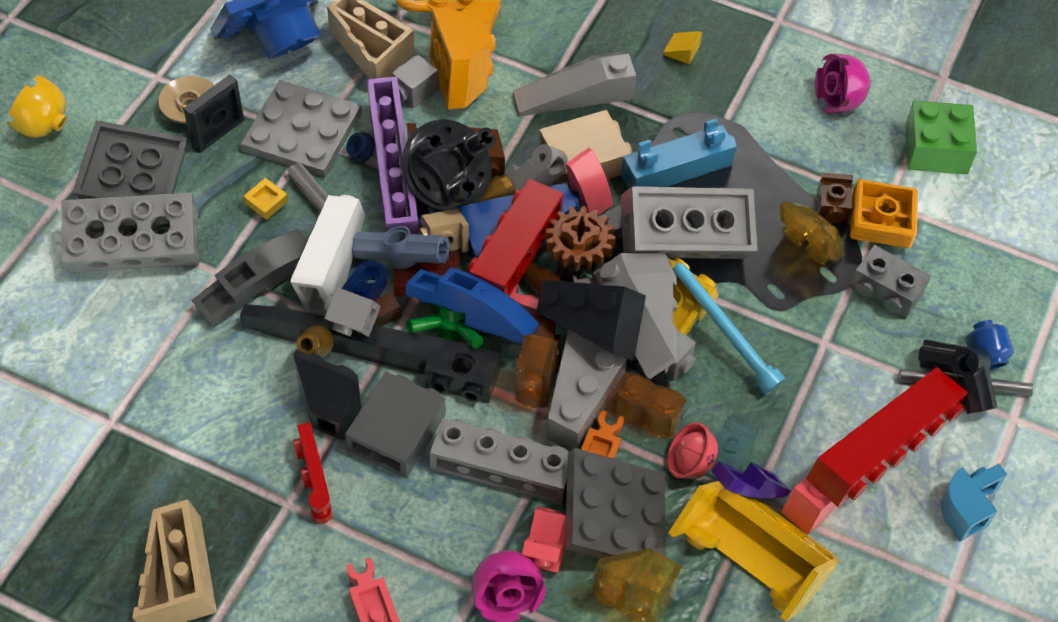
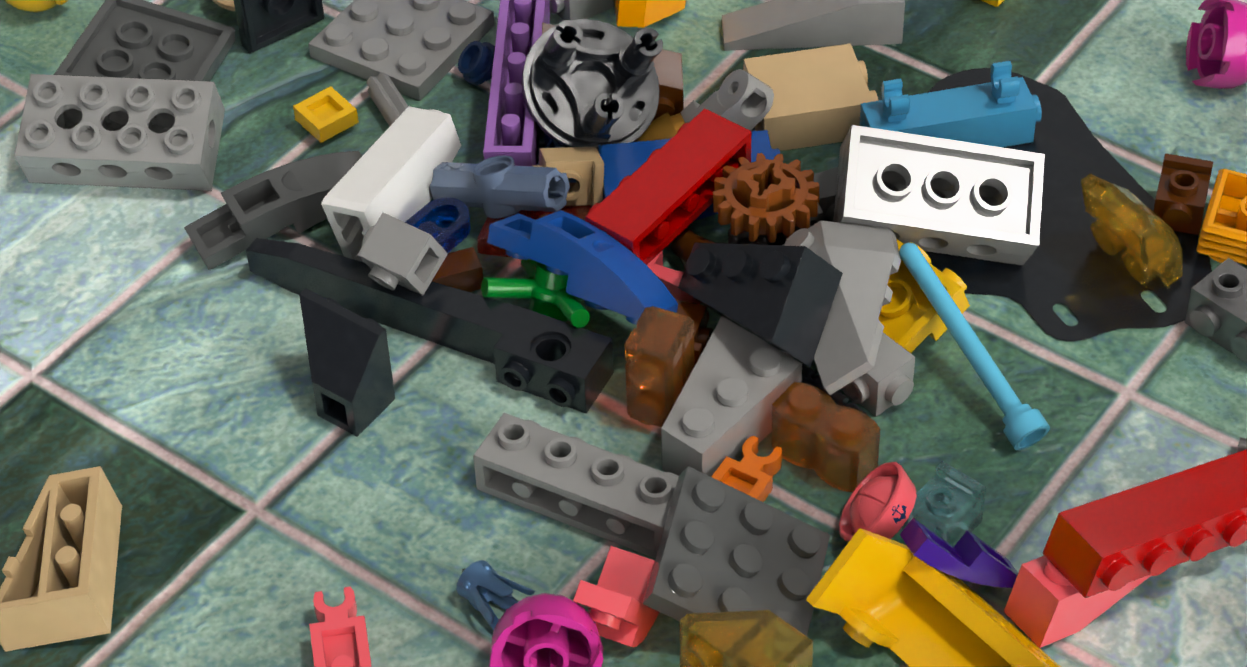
camera: 15 degrees right, 10 degrees down
(313, 474) = (297, 470): red plate -> none
(321, 339) = (342, 285): pearl gold cone -> none
(396, 424) = (434, 418): dark grey brick -> none
(454, 540) = (483, 585): none -> flat silver piece
(590, 181) = (801, 127): coral slope -> none

